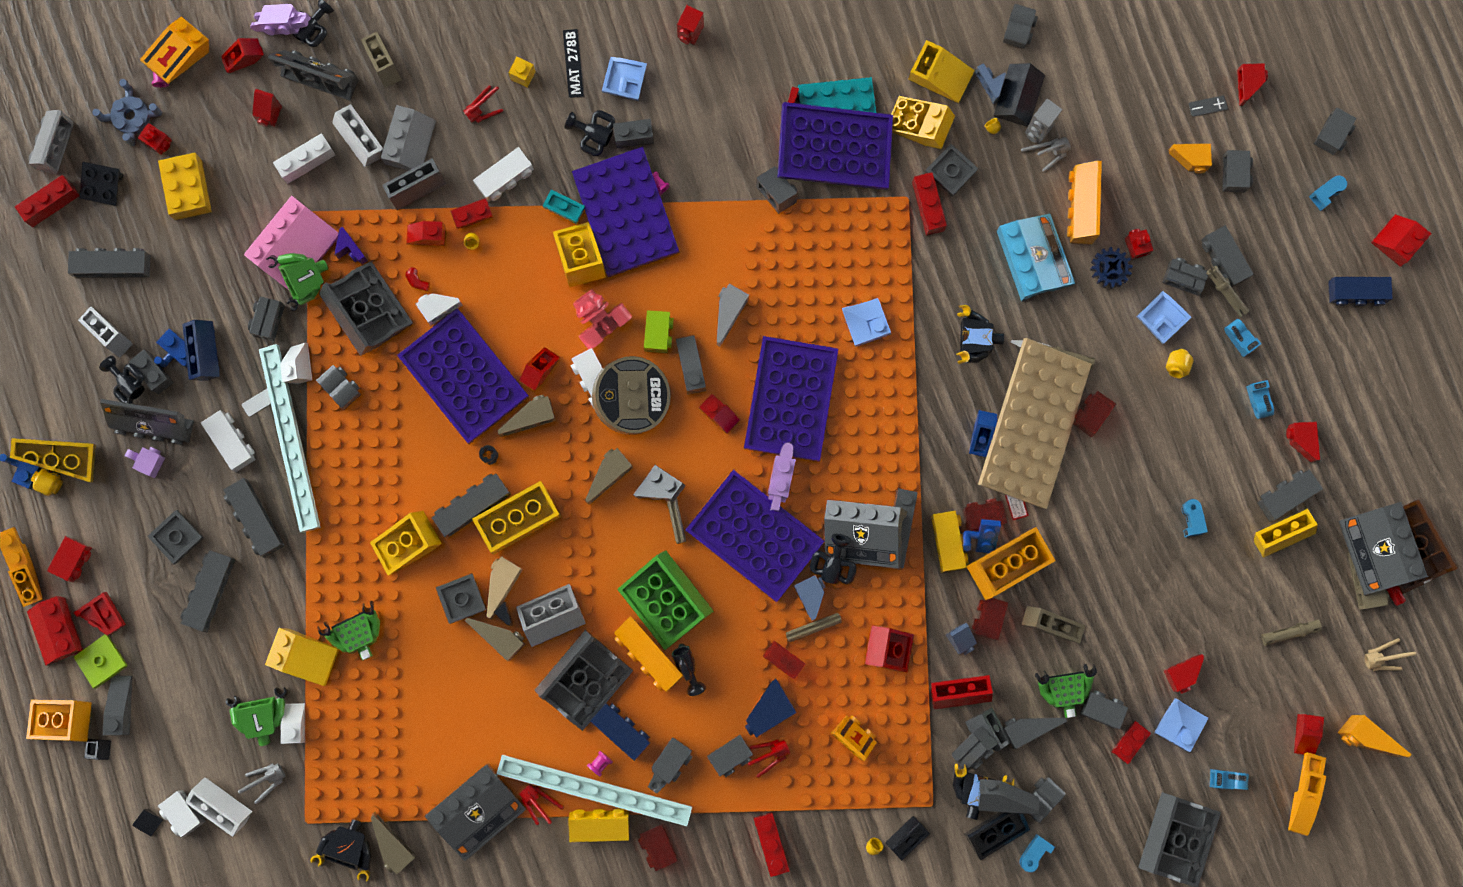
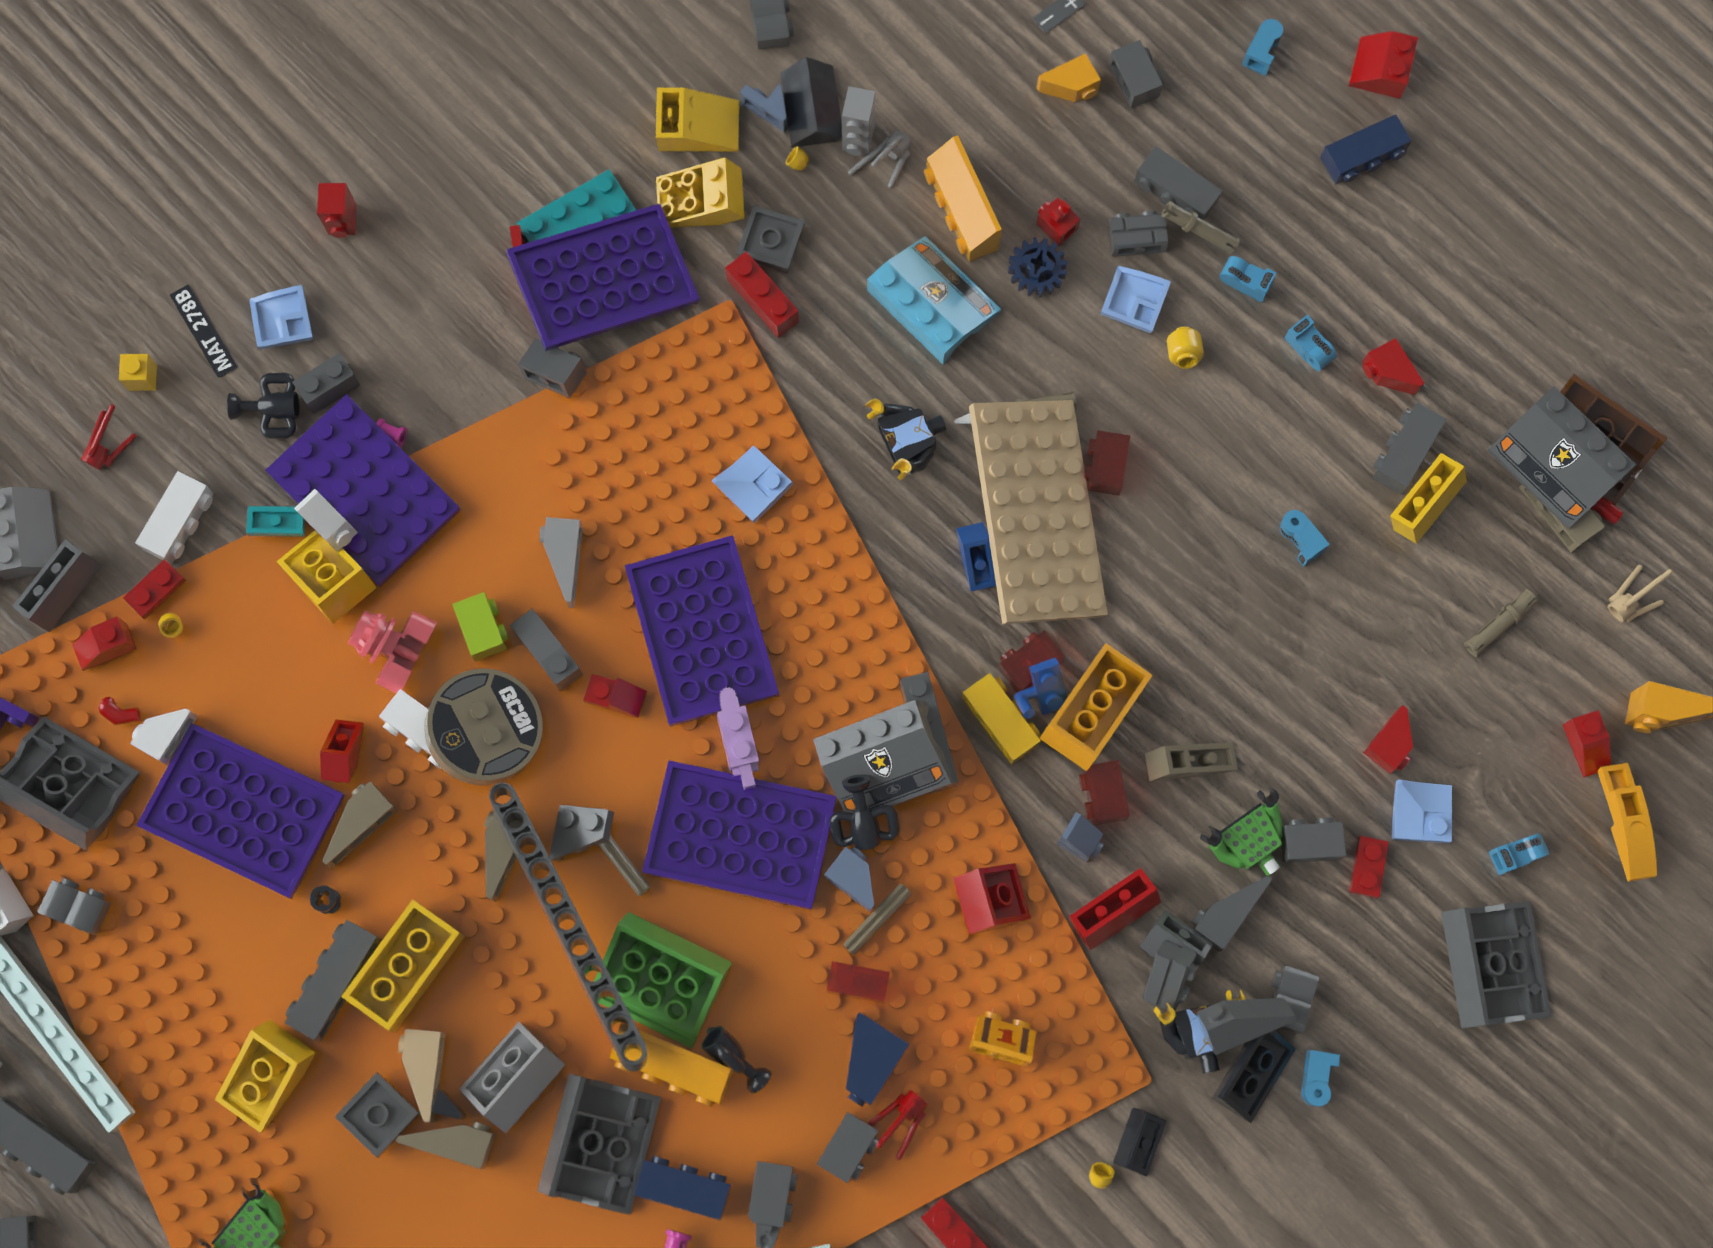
camera: 25 degrees left, 5 degrees down
(594, 222) = (326, 520): none -> white slope
(622, 550) = (568, 938): none -> dark grey beam
(1017, 508) = (1068, 632): white sticker -> none

